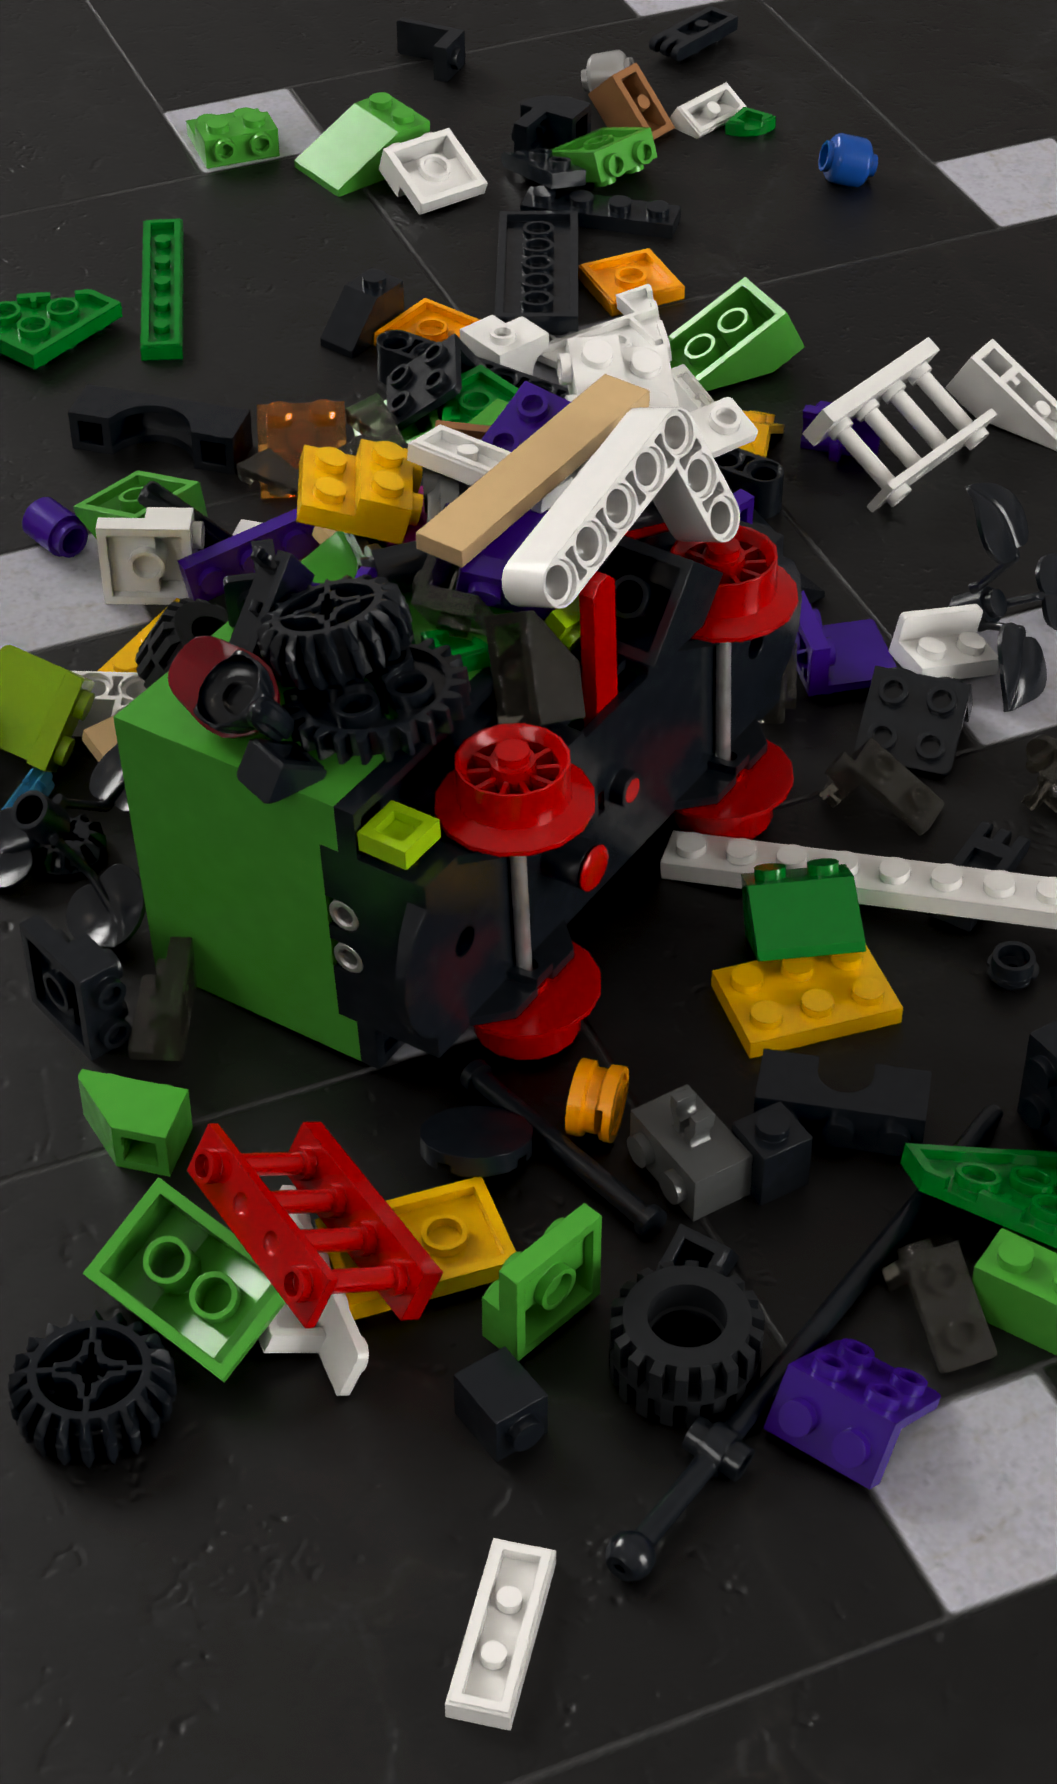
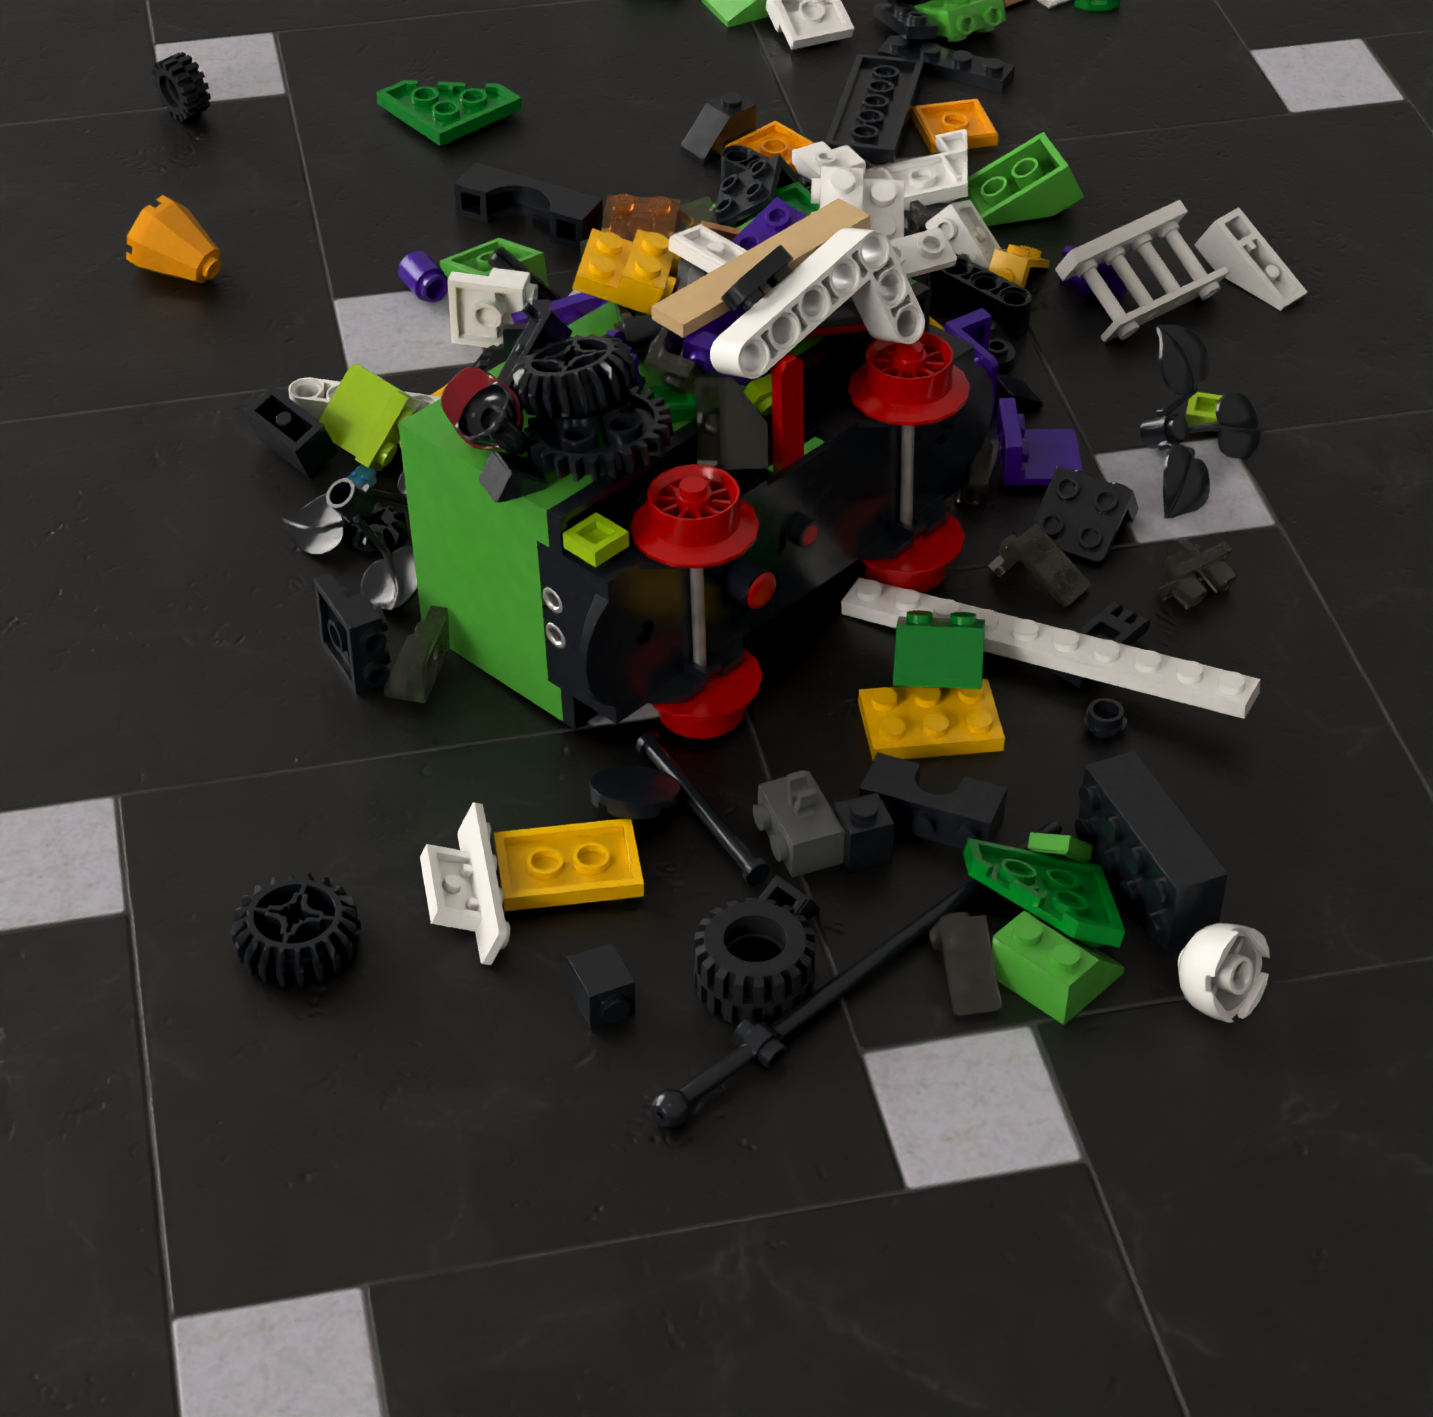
camera: 10 degrees right, 0 degrees up
(137, 1120) = (378, 741): bright green slope -> none
(162, 290) = (560, 90): green tile -> none
(187, 1279) = (384, 859): bright green slope -> none
(344, 1200) = (507, 807): red fence -> none
(501, 1634) = (559, 1148): white tile -> none
(533, 498) = (748, 288): none -> black plate
(545, 1283) = (655, 901): bright green plate -> none
(596, 1100) = (736, 774): light orange wheel -> none
(658, 599) = (840, 381): black slope -> none
(847, 160) = (1170, 40): blue head -> none
(848, 1408) = (867, 1025): dark purple bracket -> none
(943, 643) = (1124, 454): white bracket -> none
(1012, 1136) = (1061, 846): none -> bright green tile
(1018, 578) = (1202, 409): none -> lime plate

